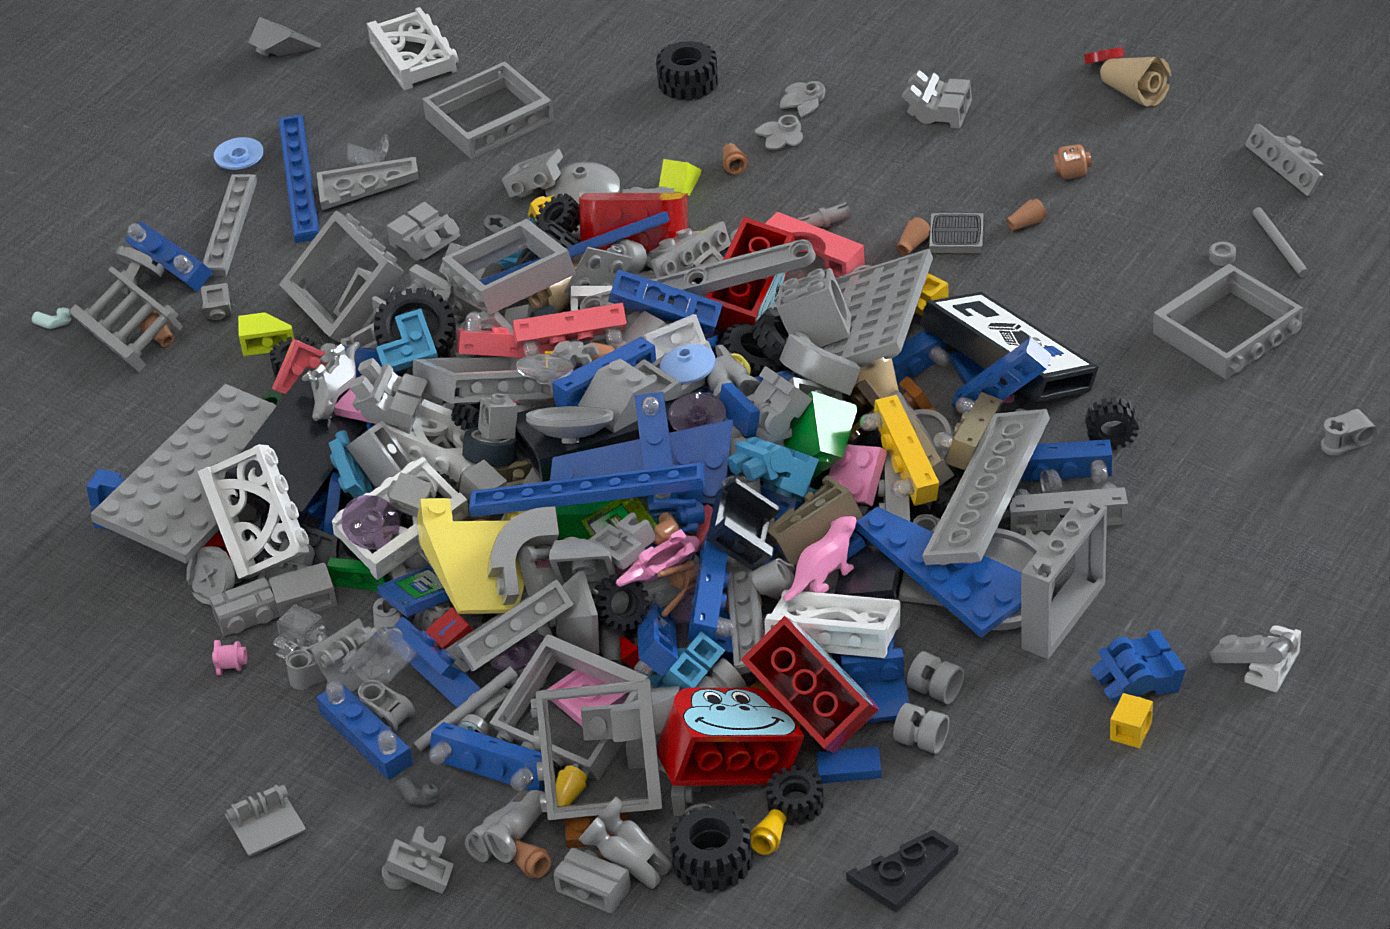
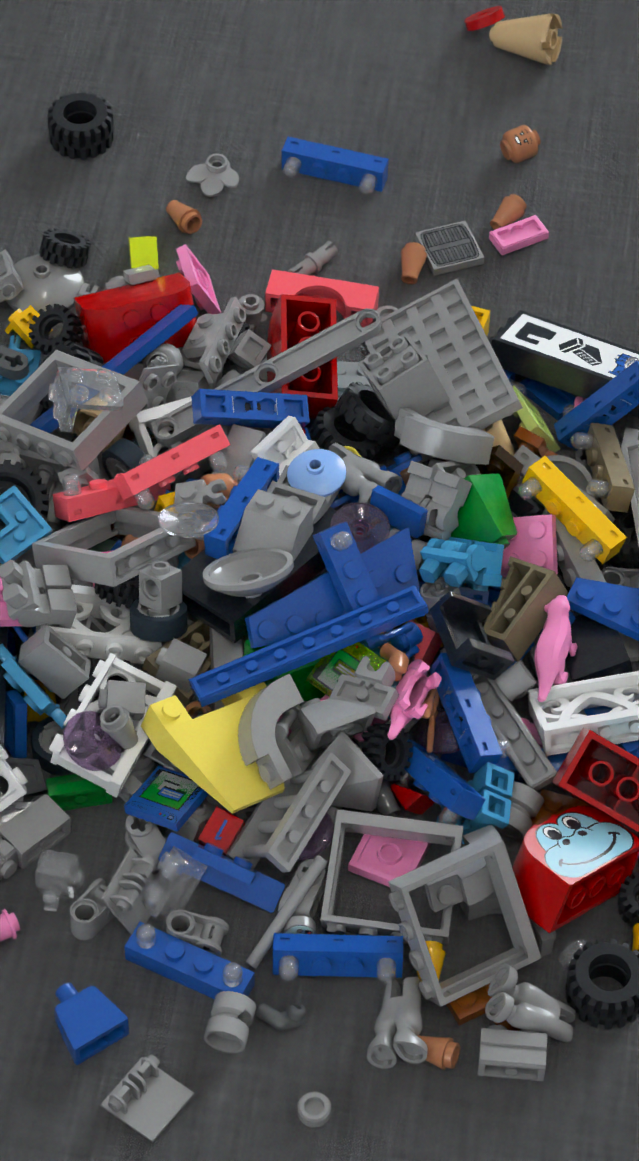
camera: 30 degrees left, 10 degrees up
(251, 748) = (88, 1021): none -> blue torso
(368, 779) = (230, 1021): none -> light grey wheel
(392, 512) = (118, 724): none -> light grey cone
(420, 861) = (334, 1092): light grey plate -> none
(515, 245) = (83, 389): none -> clear bracket
(612, 159) = (65, 248): none -> black tyre
(651, 187) = (140, 274): none -> light grey tile
(705, 202) = (199, 280): none -> bright pink plate
(803, 96) = (208, 129): light grey plate -> none
(892, 144) = (334, 164): none -> blue piece
(934, 381) = (534, 422): none -> yellowish green plate
(938, 101) = (351, 103): light grey hips -> none
(1026, 235) = (518, 235): none -> bright pink plate

